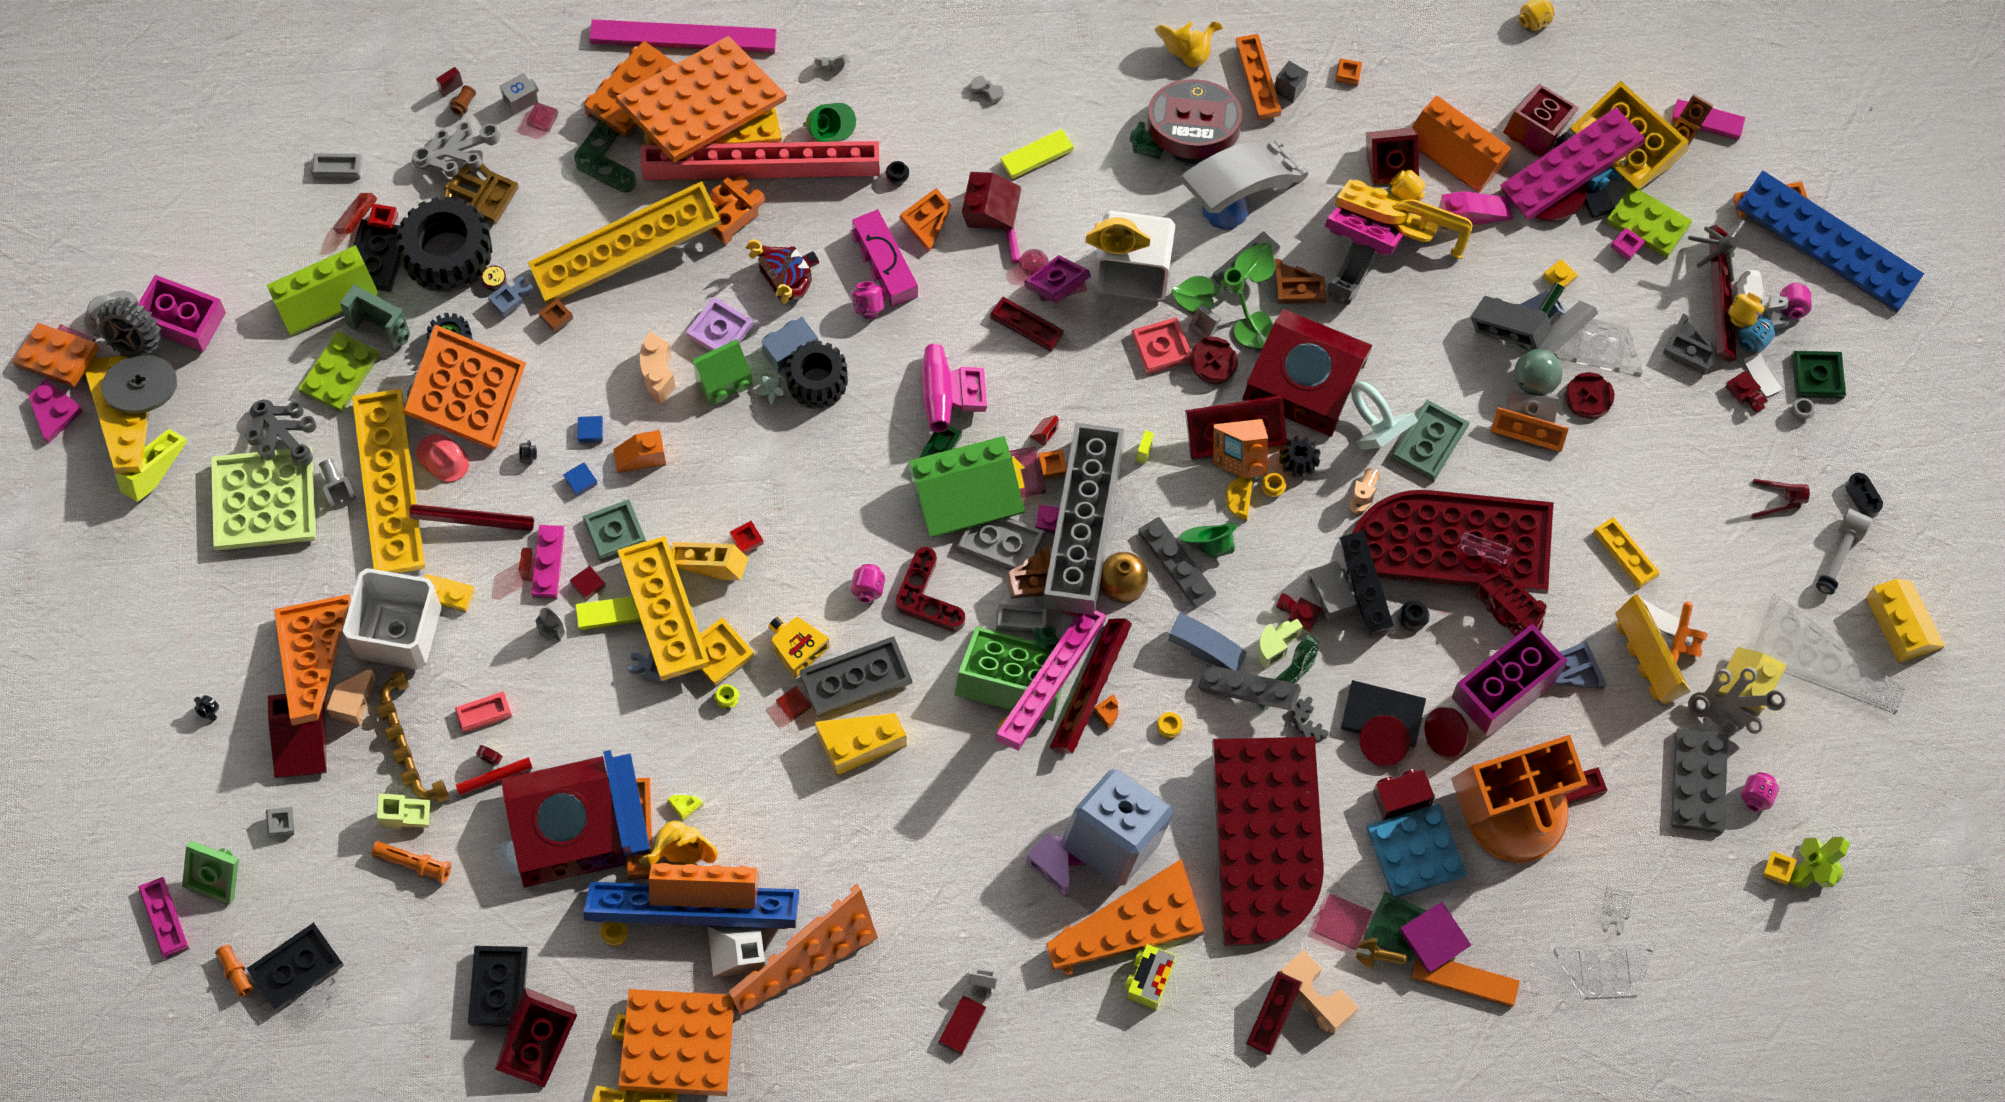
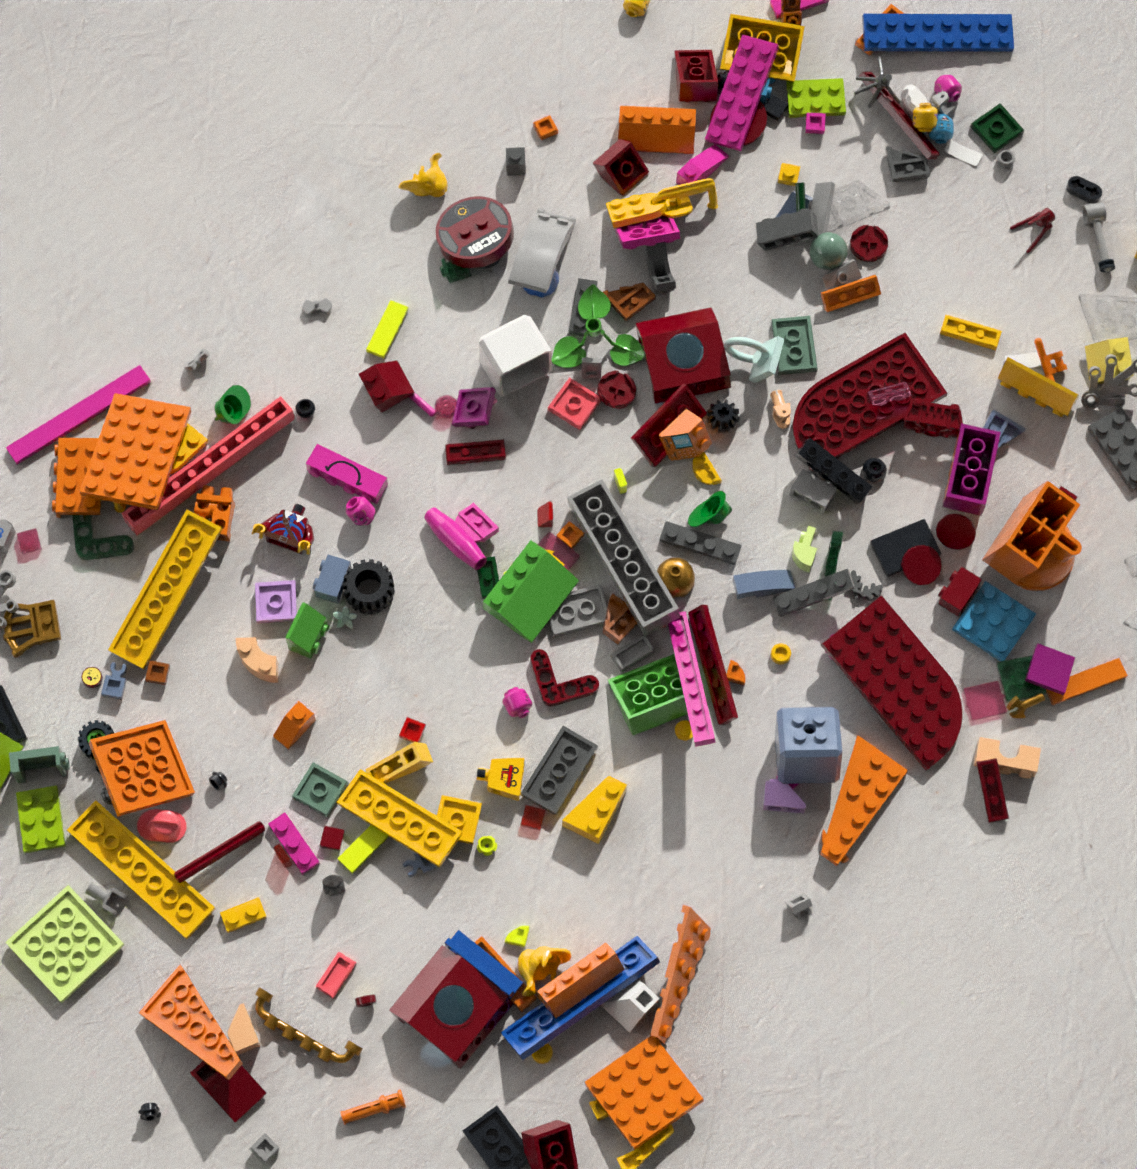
camera: 35 degrees left, 5 degrees up
(265, 412) = (36, 888): dark grey plant -> none
(390, 600) = (217, 947): white plate -> none
(398, 812) = (341, 1080): yellowish green brick -> none
(437, 218) = (30, 656): black tyre -> none
(494, 776) = (379, 1012): red piece -> none
(580, 479) = (268, 772): blue tile -> none
(590, 429) = (246, 733): blue tile -> none
(927, 217) = (351, 426): orange wing -> none
(962, 1025) = (808, 943): dark red tile -> none
(1045, 637) = (659, 658): clear green plate -> none
(1047, 518) = (596, 573): dark pink plate -> none
(1117, 236) = (504, 351): yellow hat -> none
(1150, 977) = (899, 824): brick -> none
(1258, 76) = (490, 172): orange plate -> none
(1273, 478) = (720, 441): yellow plate -> none
(1303, 610) = (803, 518): dark red plate -> none
(1407, 186) = (648, 182): yellow head -> none
(1744, 389) = (961, 170): dark red plate -> none

